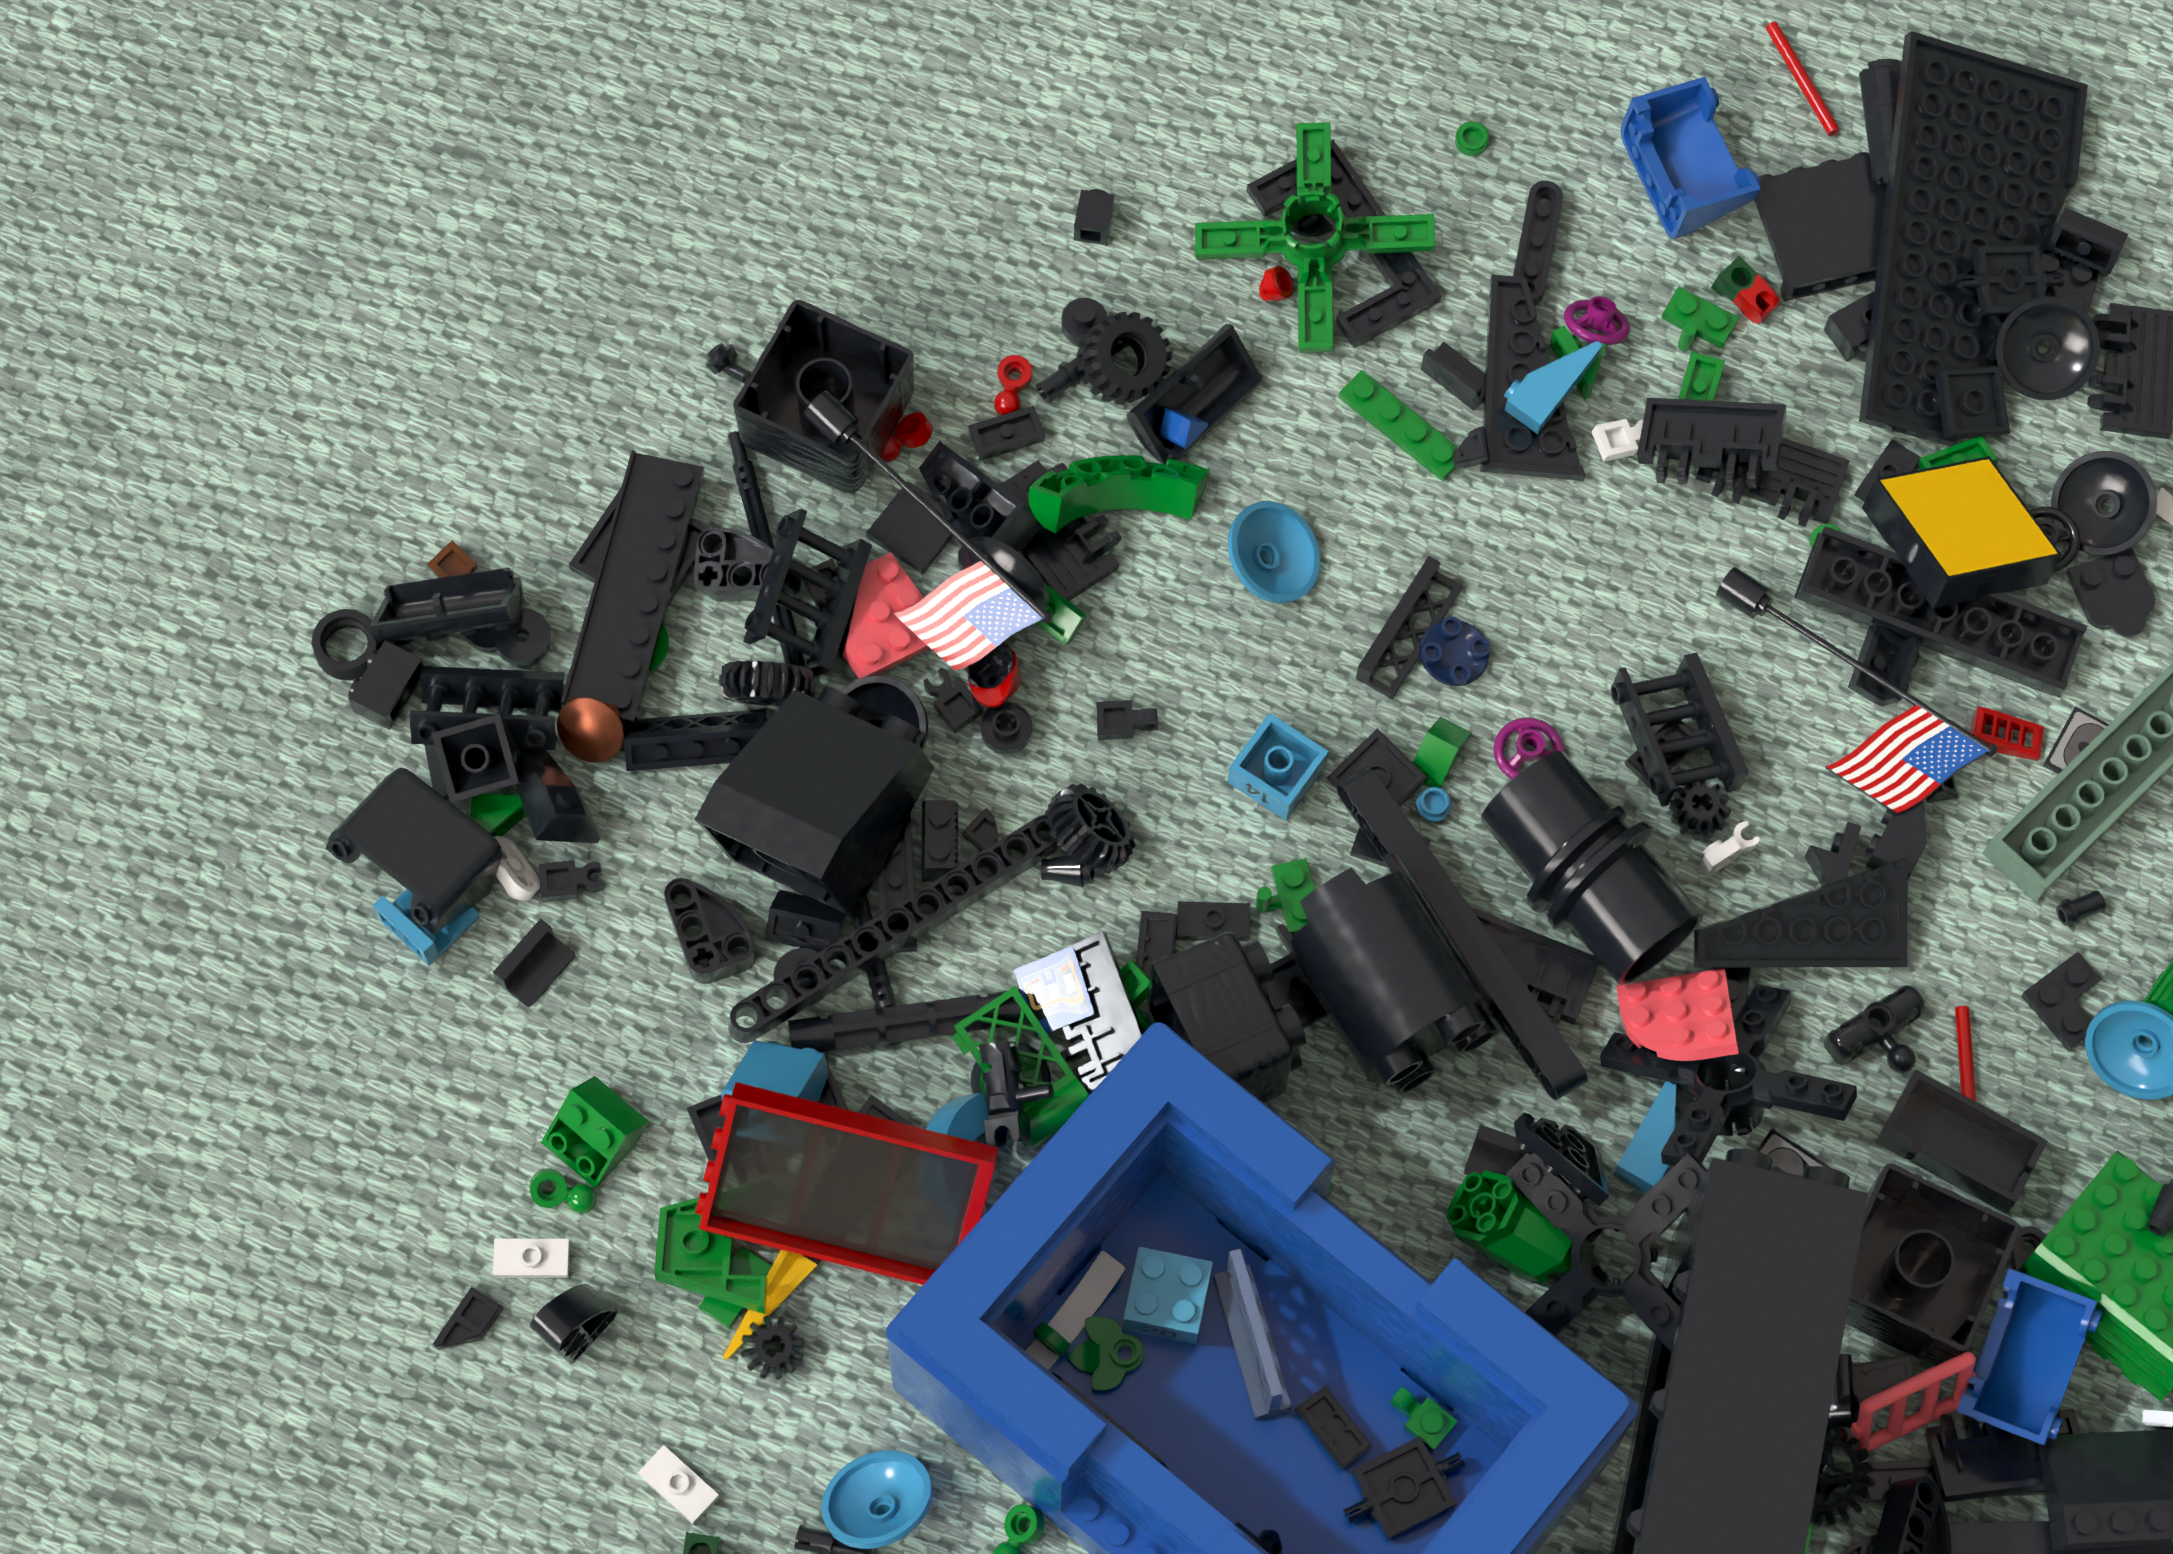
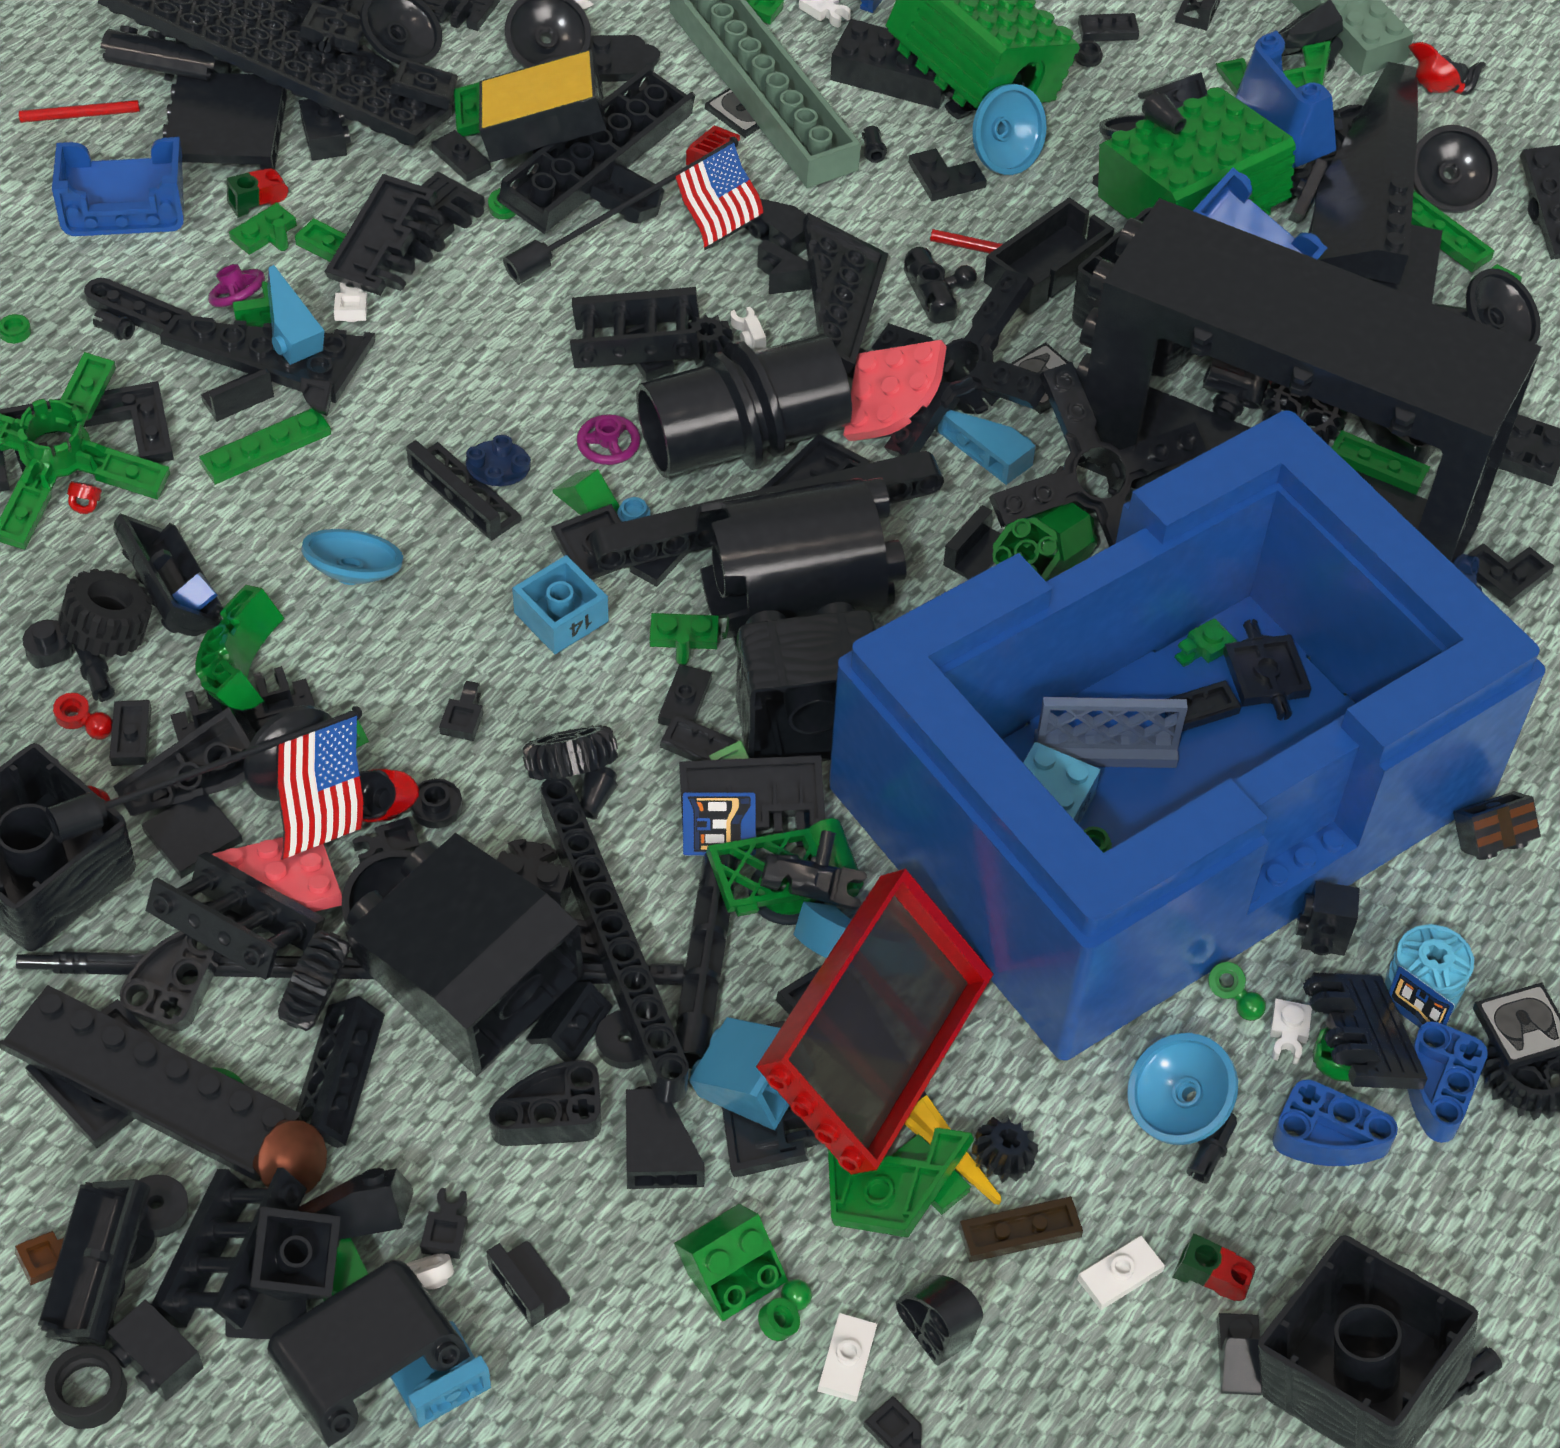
camera: 75 degrees left, 15 degrees down
(694, 1034) = (658, 1145): none -> black slope
(696, 1382) = (1020, 1229): none -> dark brown plate
(1507, 233) = (121, 327): none -> black pin
(1564, 1154) = (1005, 477): black plate -> none

